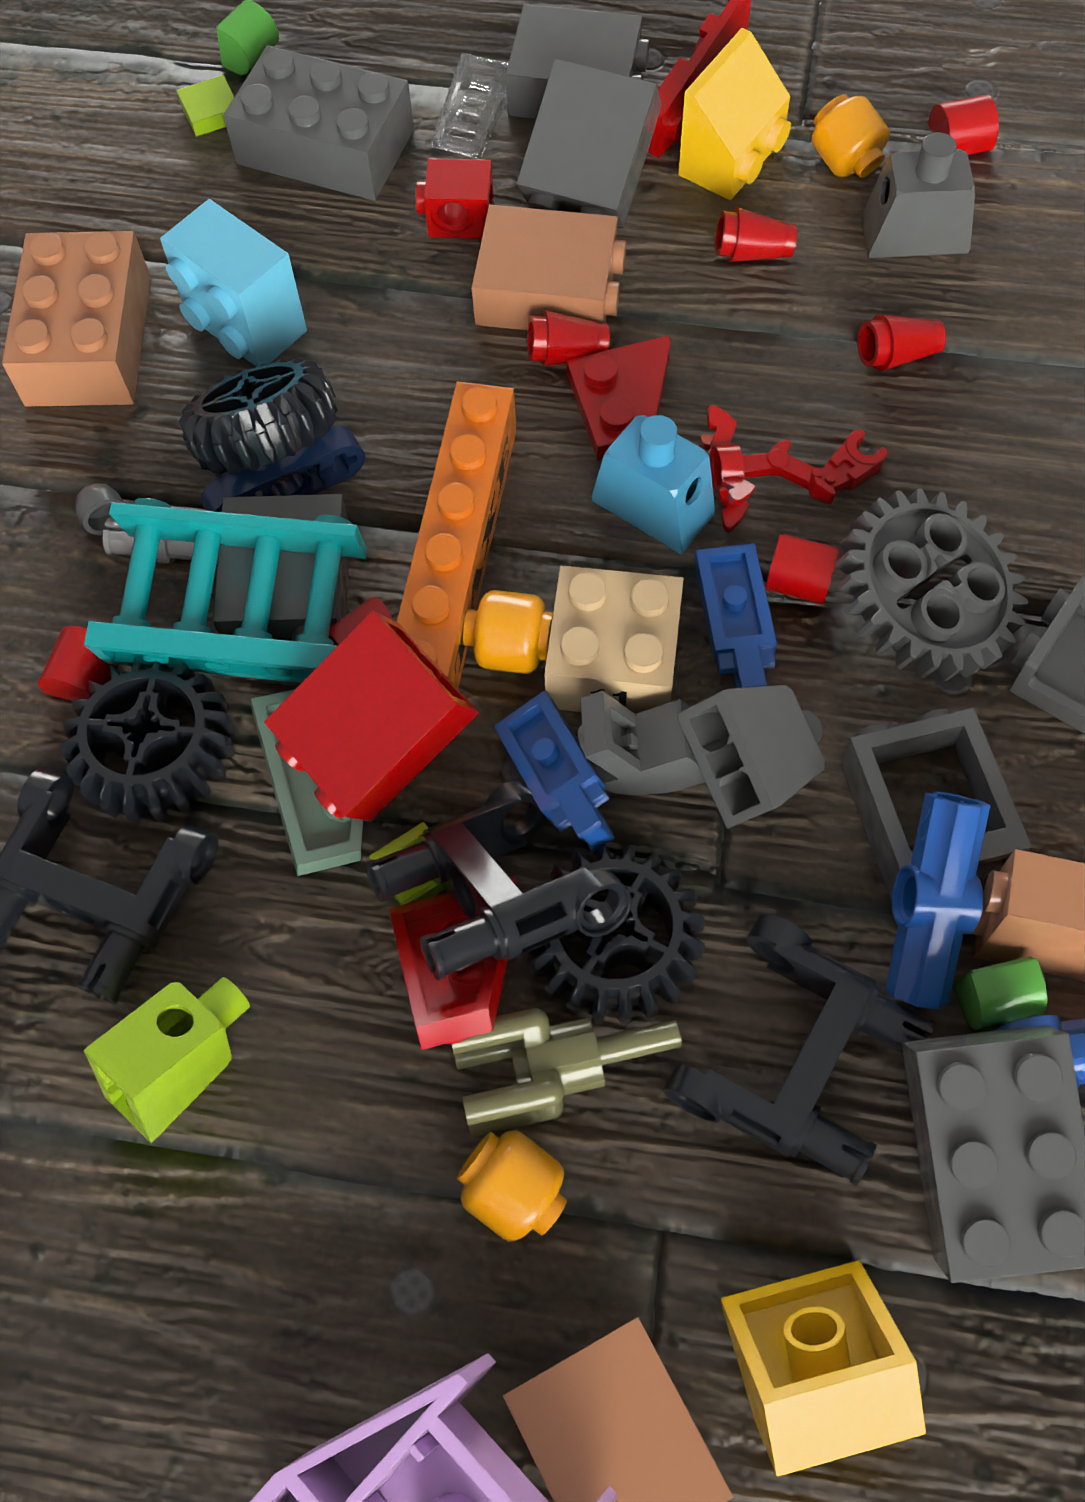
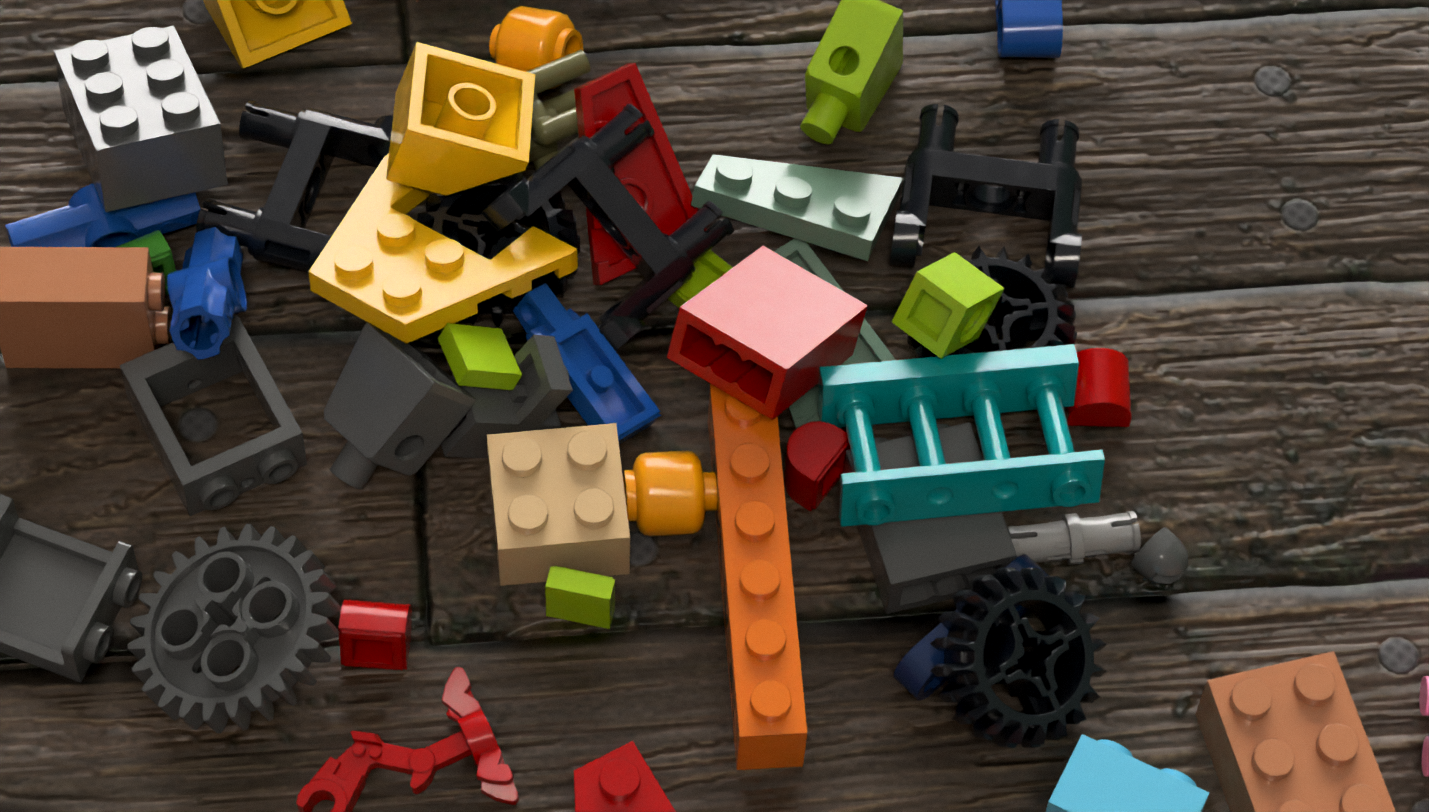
camera: 160 degrees right, 5 degrees down
(185, 694) = (947, 305): none -> lime brick
(280, 906) = (800, 201): none -> sand green wing
(611, 553) = (580, 596): none -> lime tile
(630, 1027) = (459, 122): none -> yellow slope
(657, 482) = (559, 685): dark azure torso -> none
(663, 762) = (479, 356): none -> lime tile
(728, 869) = (414, 277): none -> yellow wing
(736, 612) = (438, 574): blue hinge -> none

